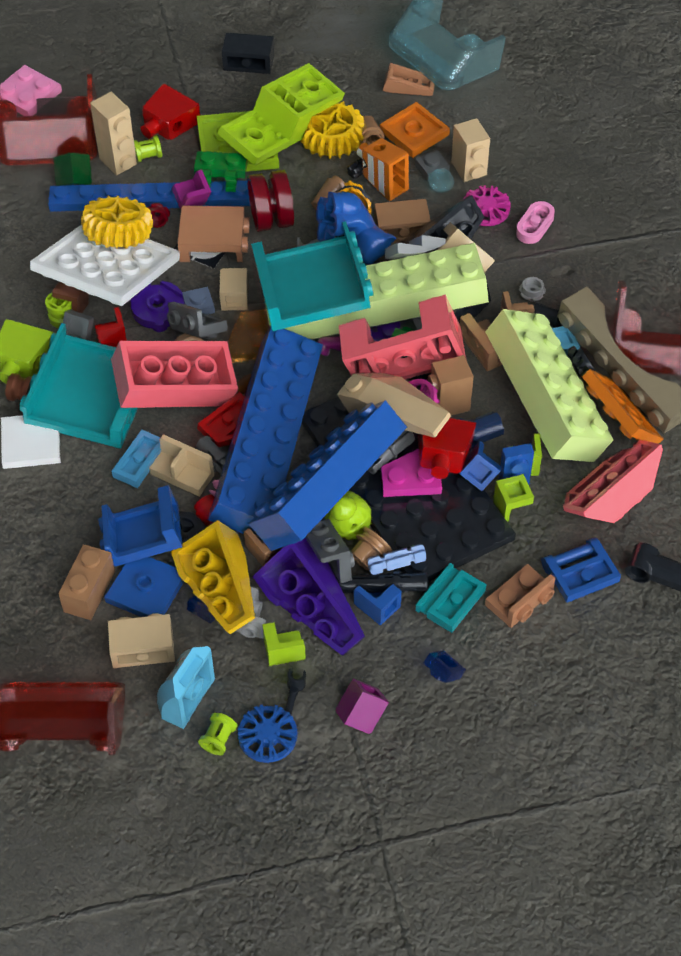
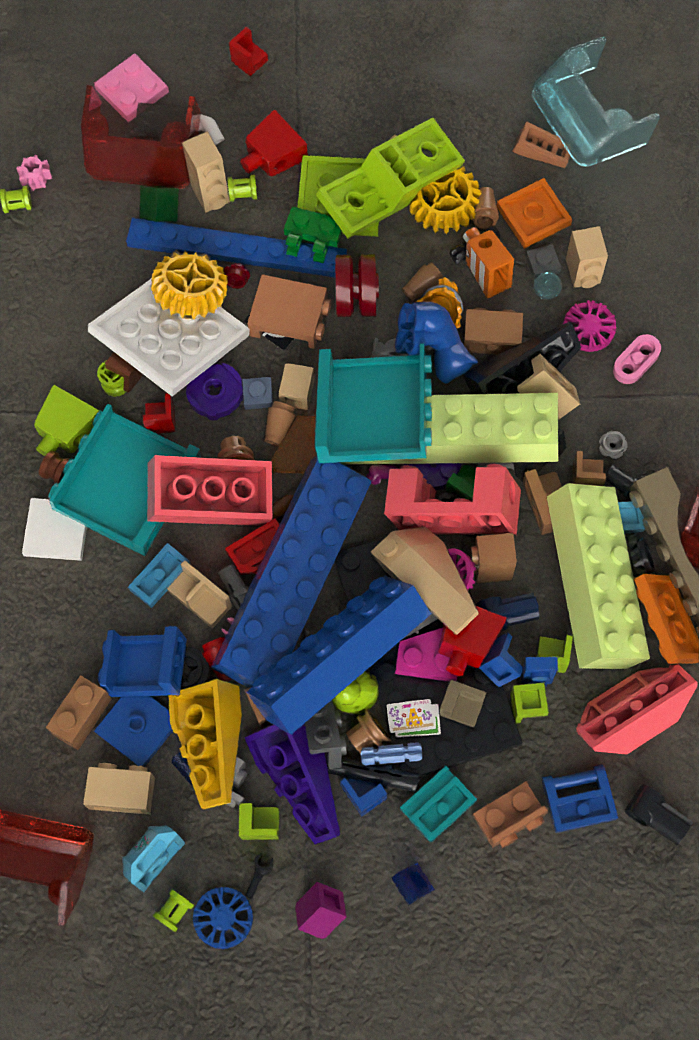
camera: 15 degrees right, 15 degrees up
(78, 324) = (126, 403): dark grey plate -> none
(125, 51) = (246, 53): none -> red panel
(193, 191) = (275, 258): magenta panel -> none
(194, 322) = (247, 425): dark grey bracket -> none
(225, 310) = (278, 422): none -> medium nougat cone
(248, 53) = (375, 79): black brick -> none
(410, 529) = (414, 718): none -> white sticker
(417, 246) = (496, 385): light grey slope -> none
(452, 504) = (462, 703): none -> dark tan panel

